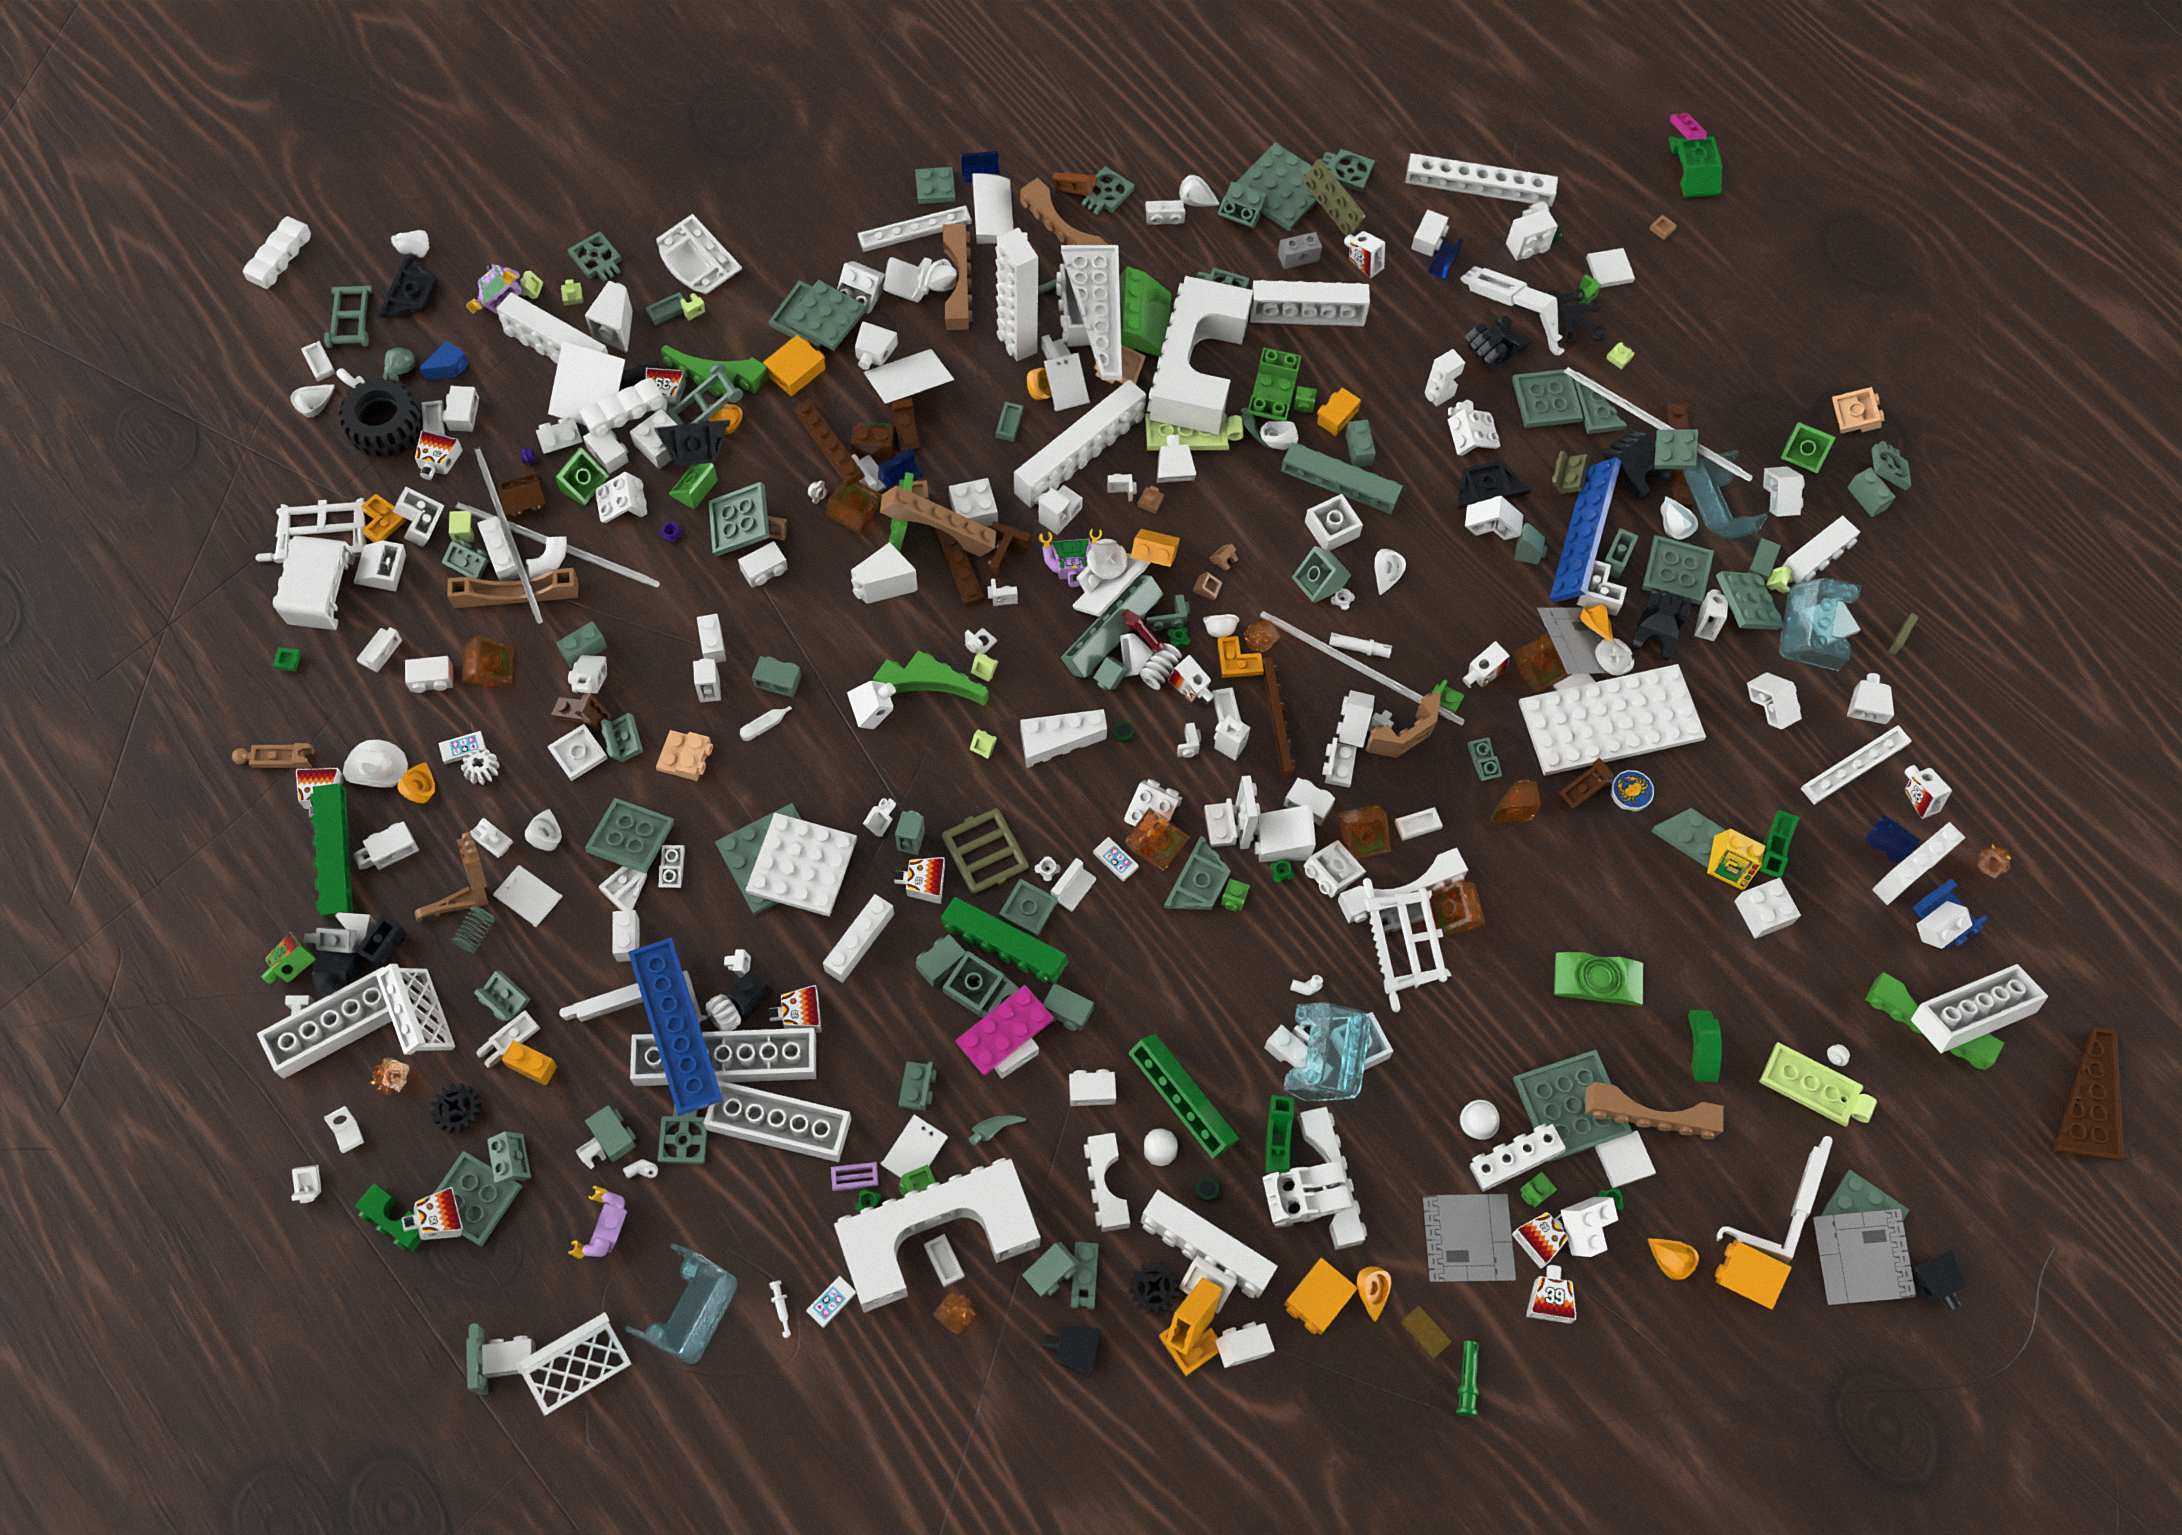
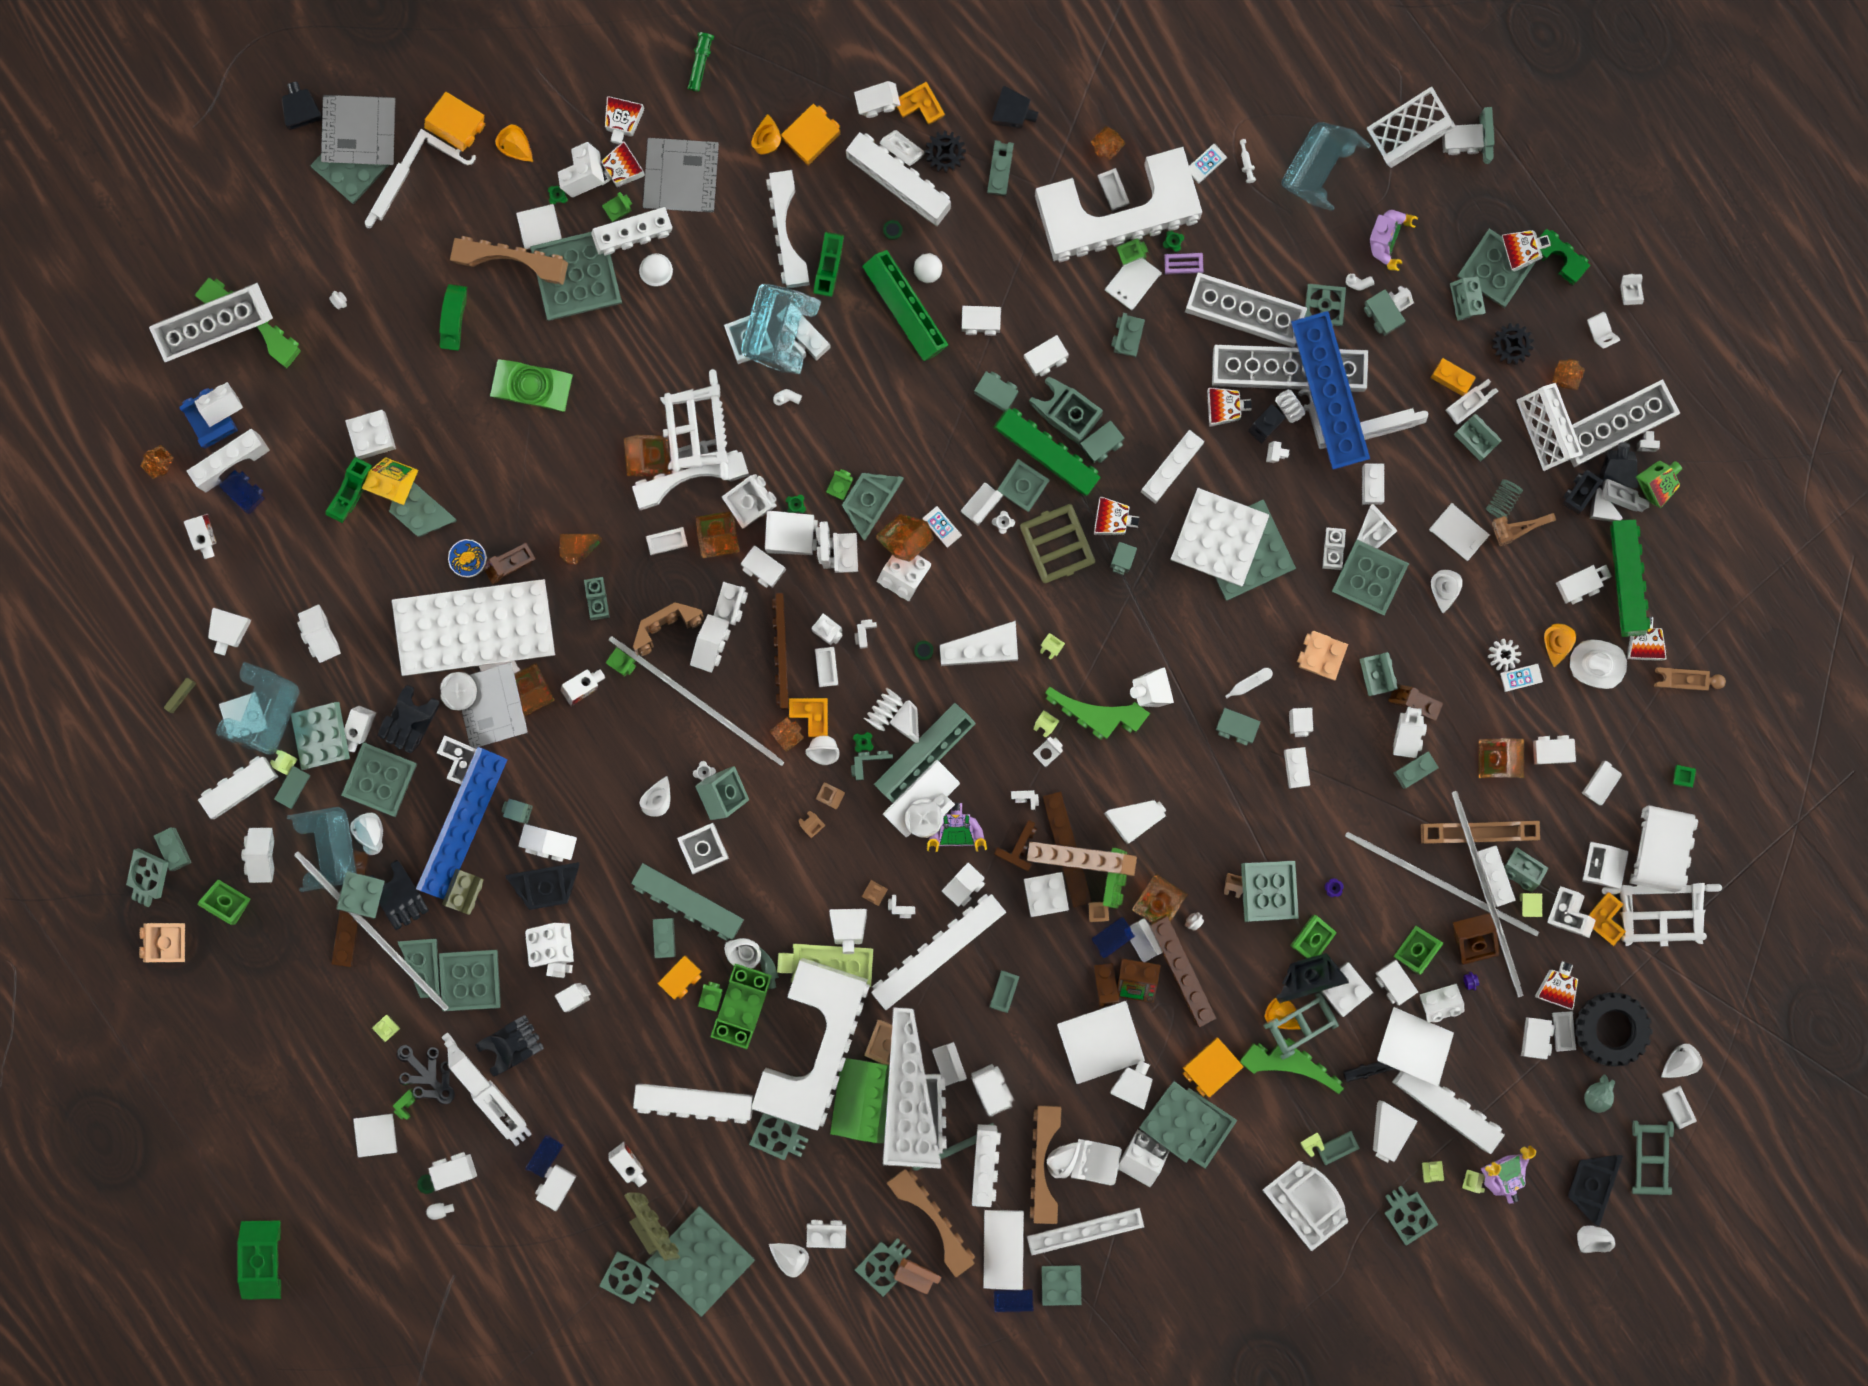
camera: 170 degrees left, 20 degrees up
(276, 253) = (1728, 1237): white brick -> none
(348, 379) = (1648, 1080): white arm -> none
(444, 363) = (1554, 1093): blue slope -> none
(491, 838) = (1492, 583): white hips -> none
(550, 559) = (1447, 862): white cylinder -> none
(577, 752) = (1418, 663): white plate -> none
(619, 496) = (1381, 926): white bracket -> none
(624, 406) = (1380, 1016): white brick -> none
(670, 383) = (1341, 1047): torso -> none
(763, 564) = (1247, 844): white brick -> none
(879, 818) = (1149, 578): white plate -> none
(986, 1129) = (1067, 296): sand green bar -> none
(1004, 1030) = (1052, 369): dark pink plate -> none
(1038, 384) = (967, 1030): light orange piece -> none
(1051, 1269) = (1028, 170): sand green brick -> none
(1066, 382) = (945, 1027): white container -> none
(1110, 673) = (930, 705): sand green brick -> none
(1112, 1210) = (973, 216): white arch -> none
(1134, 622) = (898, 740): dark red plate -> none
(1155, 547) = (877, 828): light orange brick -> none
(1191, 680) = (861, 694): white torso -> none
(1194, 1315) = (916, 120): light orange brick -> none
(1242, 205) = (746, 1231): sand green brick -> none
(1299, 250) = (693, 1173): light grey brick -> none
(1311, 1203) = (811, 220): white connector -> none
(1356, 644) = (694, 721): white pin -> none
(1380, 720) = (687, 637): white tile -> none
(1426, 1332) = (729, 100): clear yellow plate -> none
(1481, 179) = (423, 1243): white brick -> none
(1598, 620) = (468, 725): light orange piece -> none
(1620, 552) = (434, 796): sand green brick -> none
(1663, 227) = (310, 1184): medium nougat tile -> none
(1688, 126) = (260, 1302): dark pink tile -> none
(1816, 1086) = (364, 275): yellowish green hinge -> none
(1856, 764) = (256, 567): white plate -> none
(2094, 1107) = (130, 234): reddish brown wing -> none

